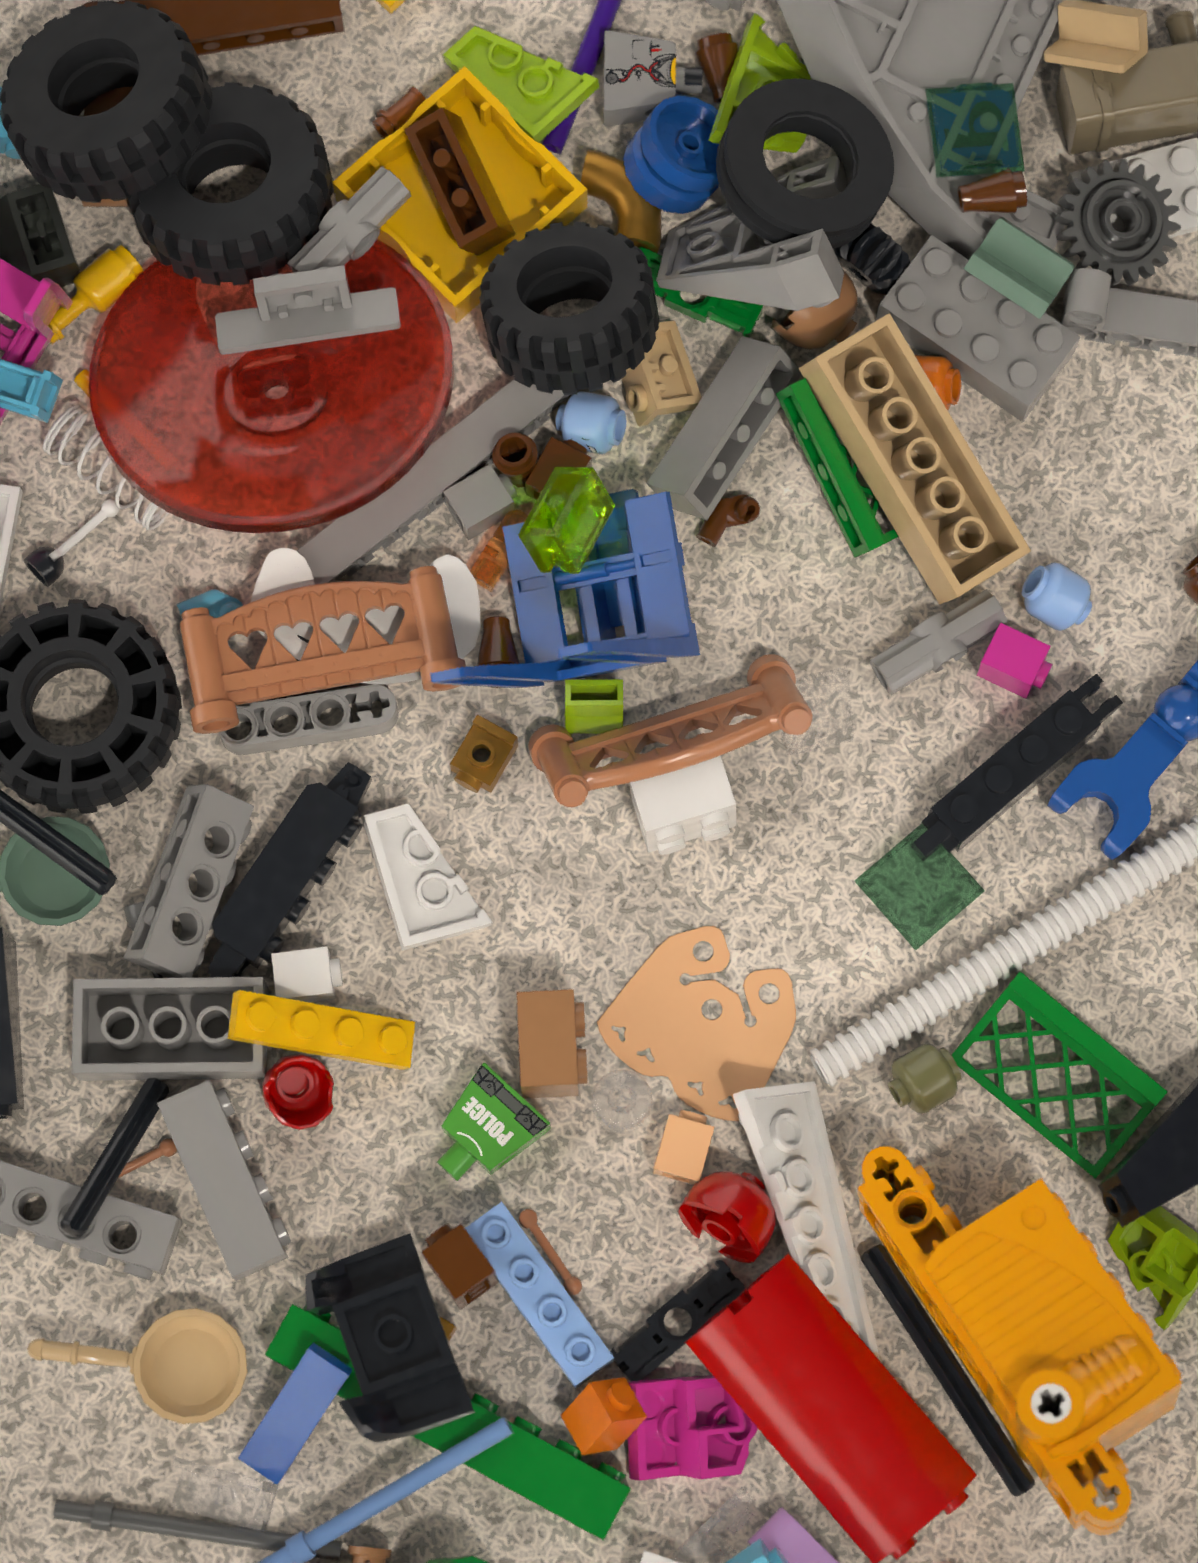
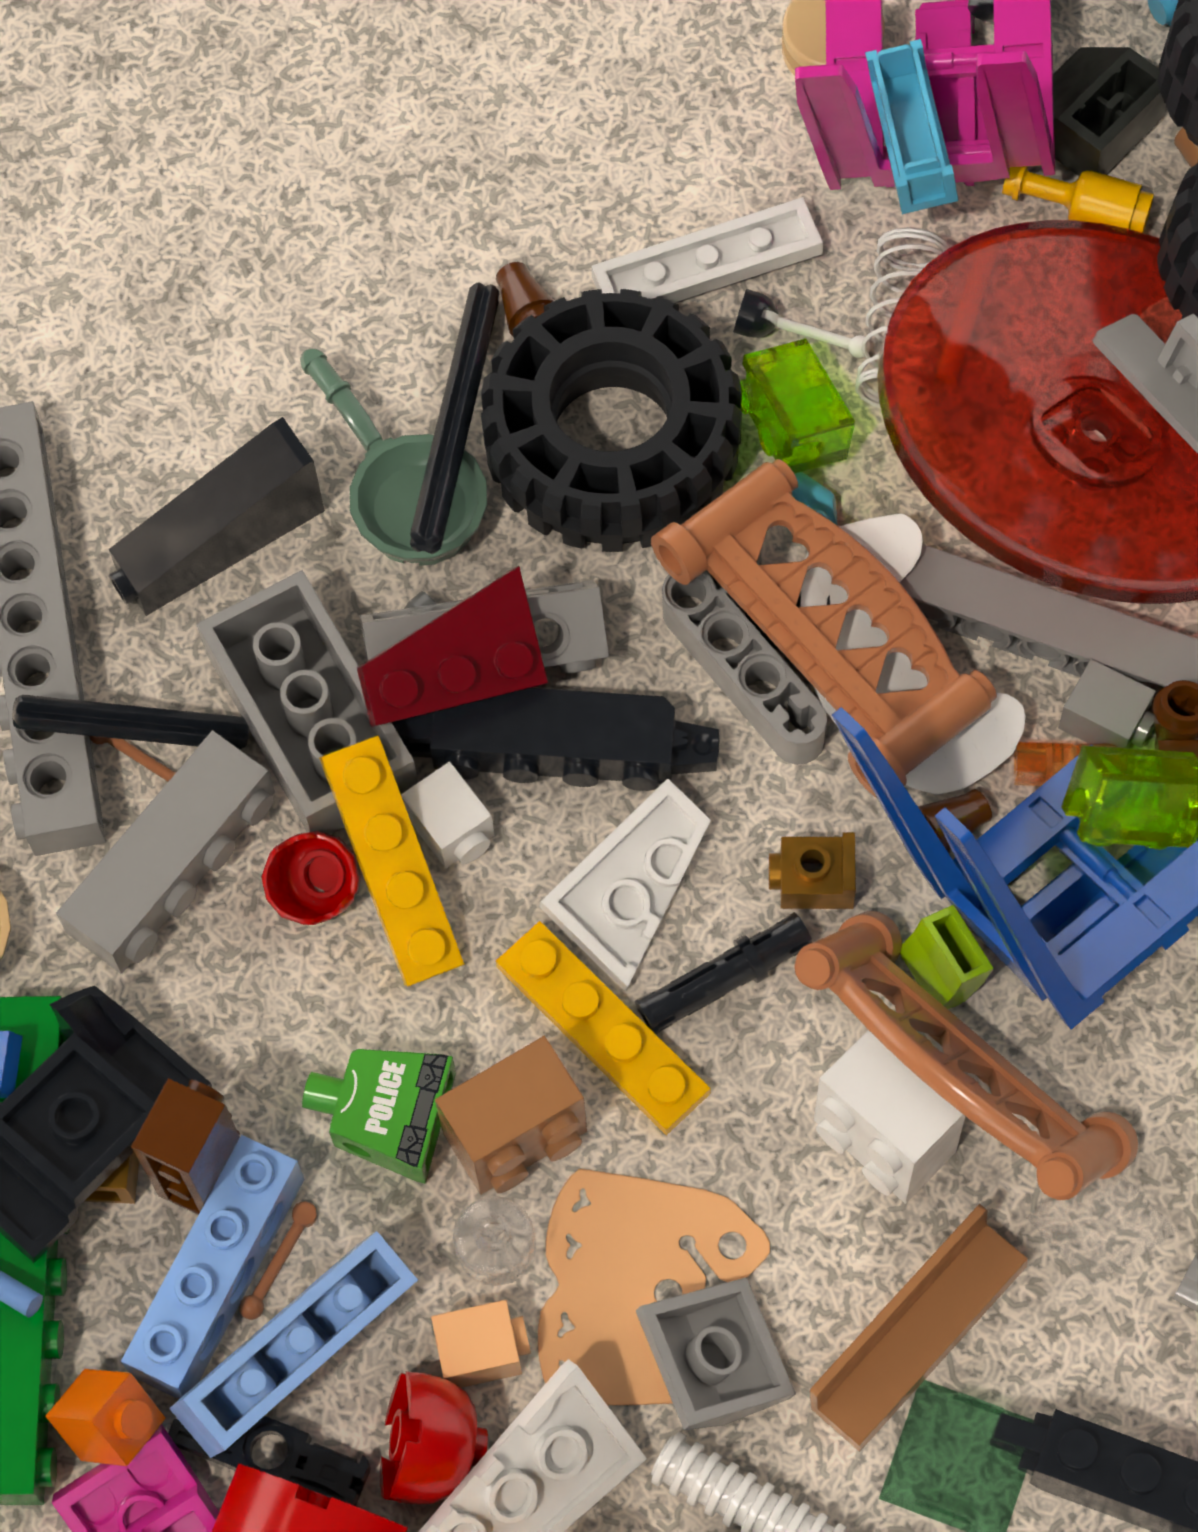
camera: 65 degrees right, 10 degrees down
(139, 577) = (795, 407): none -> clear neon green brick
(209, 907) = (460, 657): none -> dark red wing
(509, 954) = (603, 1028): none -> yellow plate
(519, 853) = (744, 962): none -> black pin
(624, 1267) = (293, 1344): none -> light blue brick
(773, 999) = (715, 1354): none -> light grey slope
(827, 864) = (916, 1330): none -> medium nougat panel

